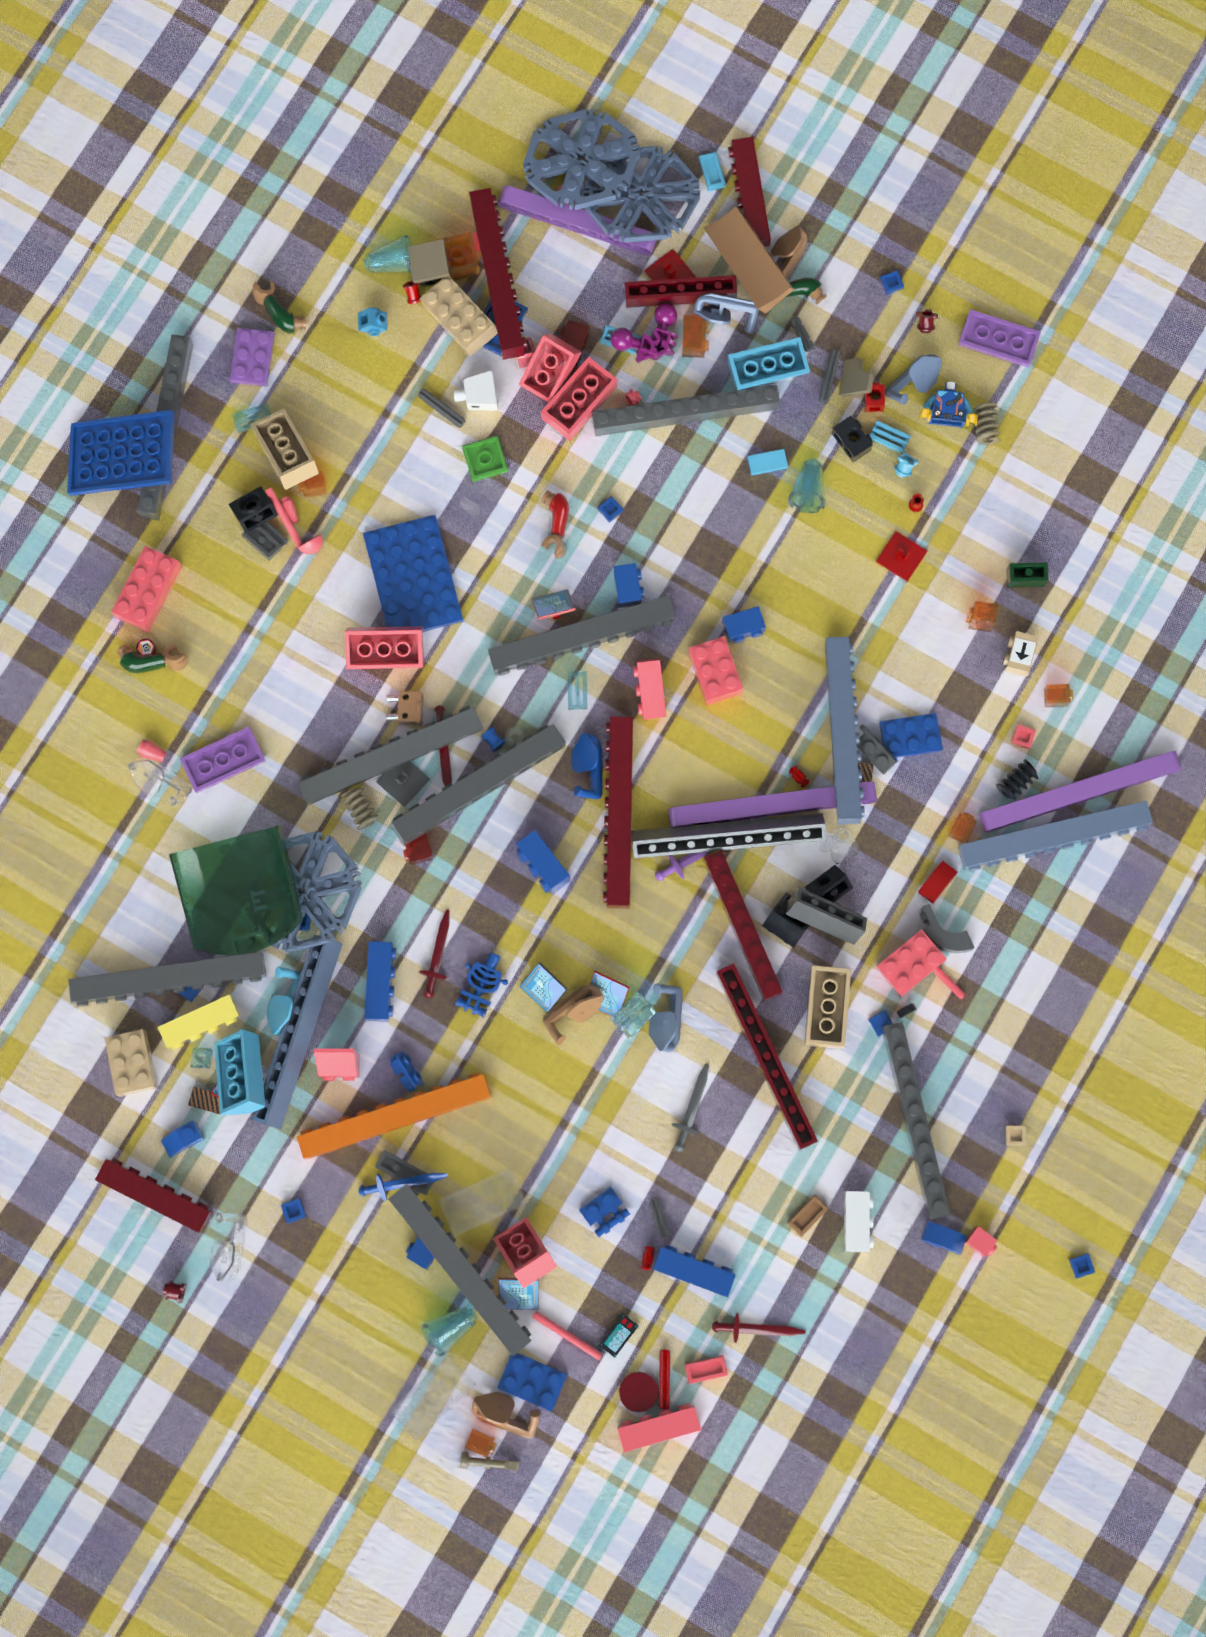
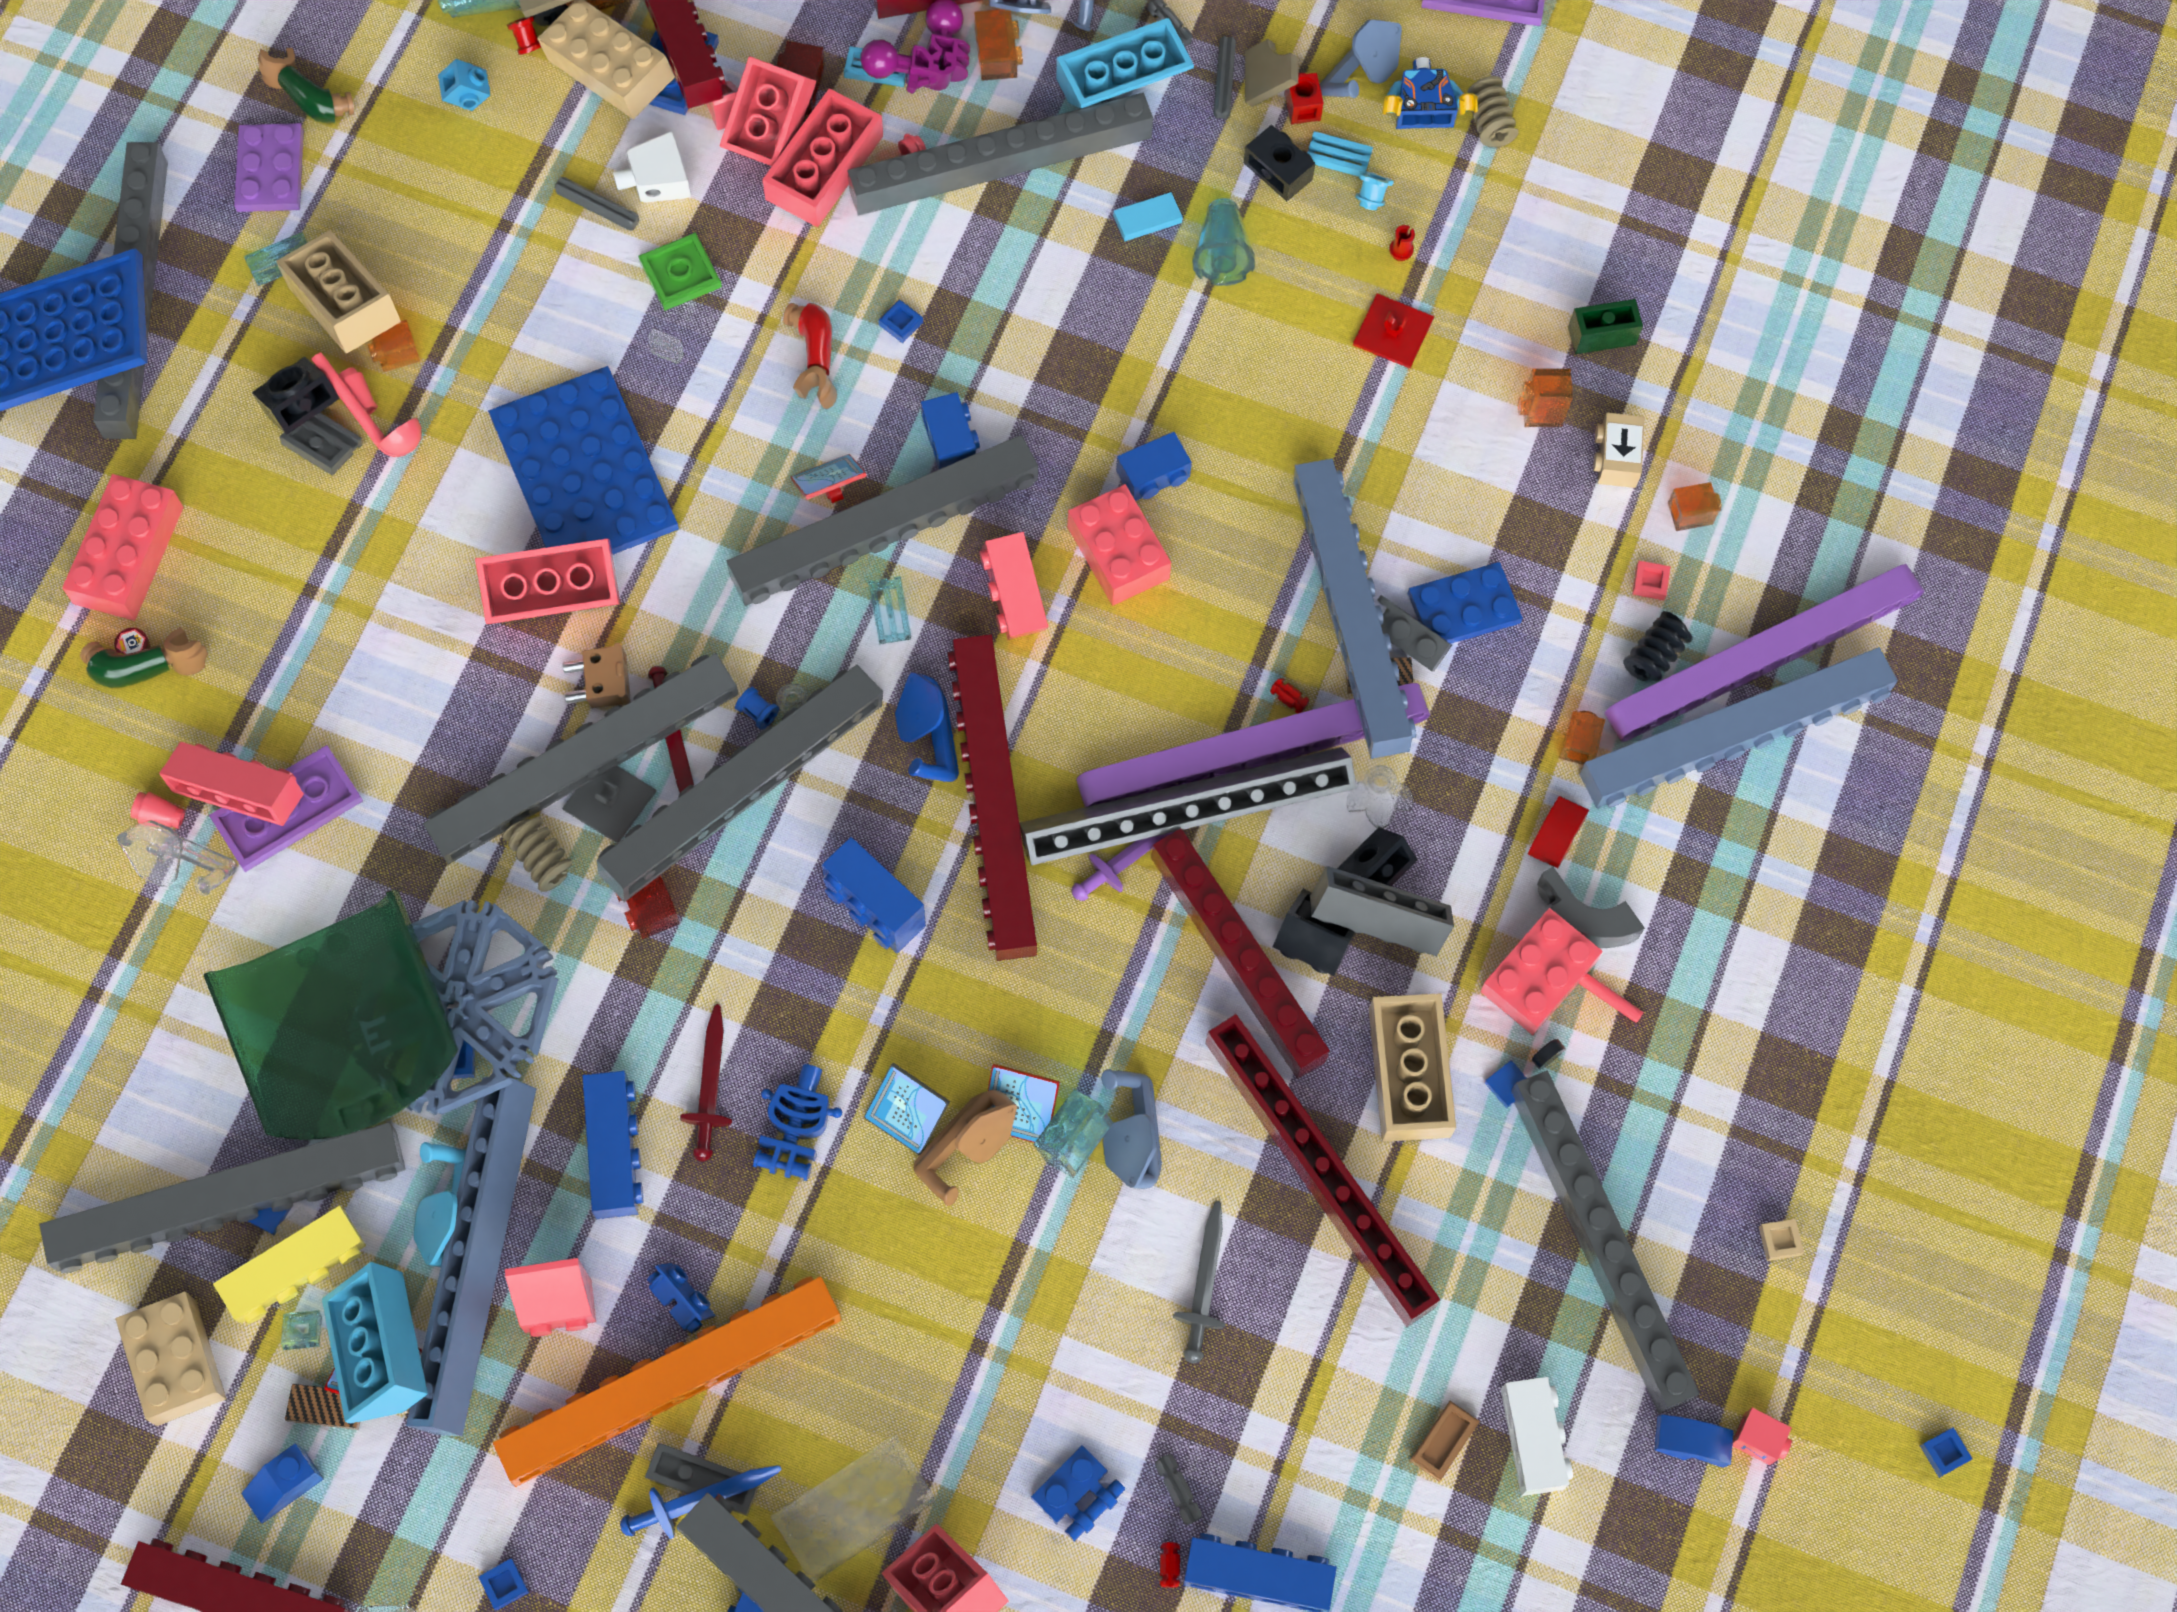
camera: 15 degrees left, 10 degrees down
(194, 742) = (232, 783): none -> coral brick

